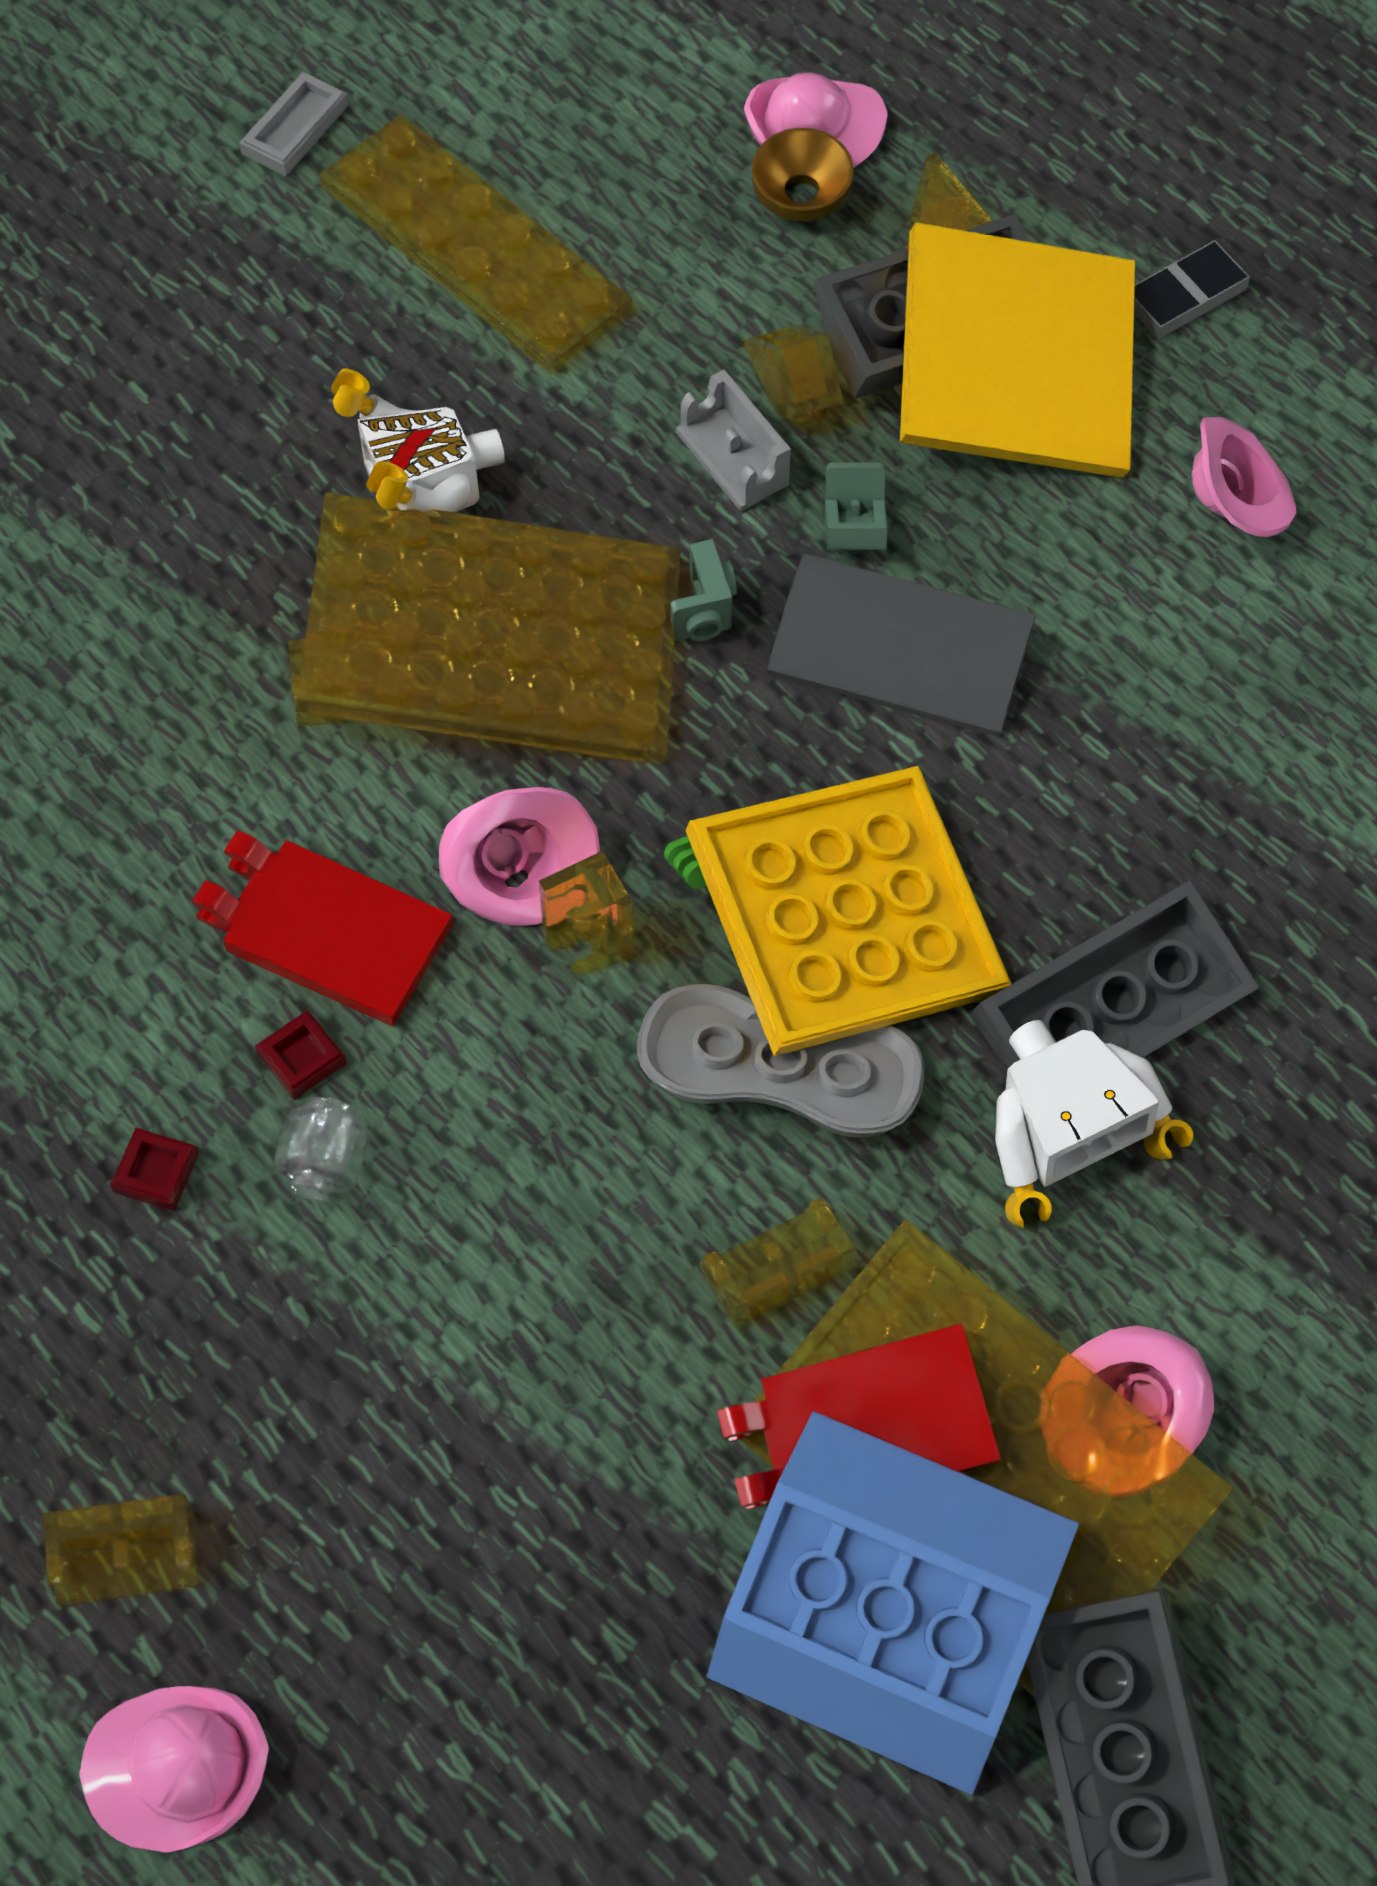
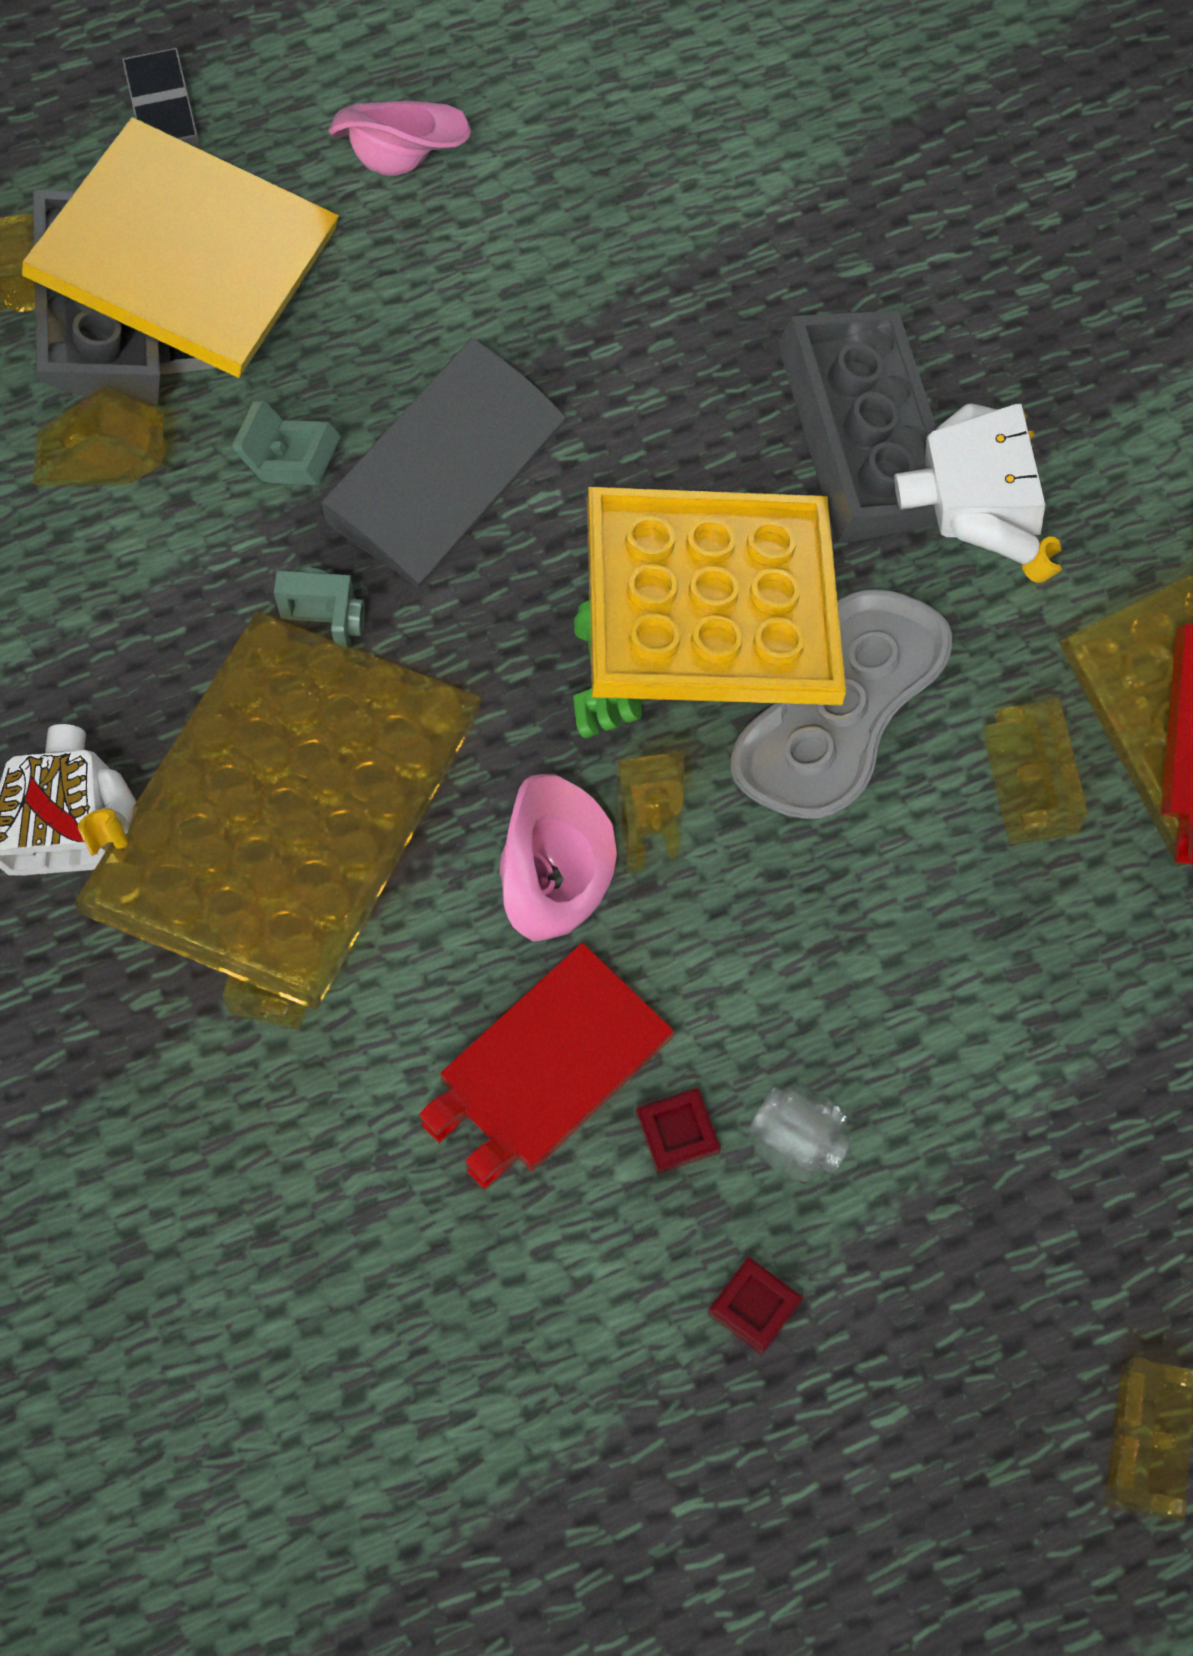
camera: 70 degrees left, 5 degrees up
(734, 442) = (158, 523): light grey hinge -> none

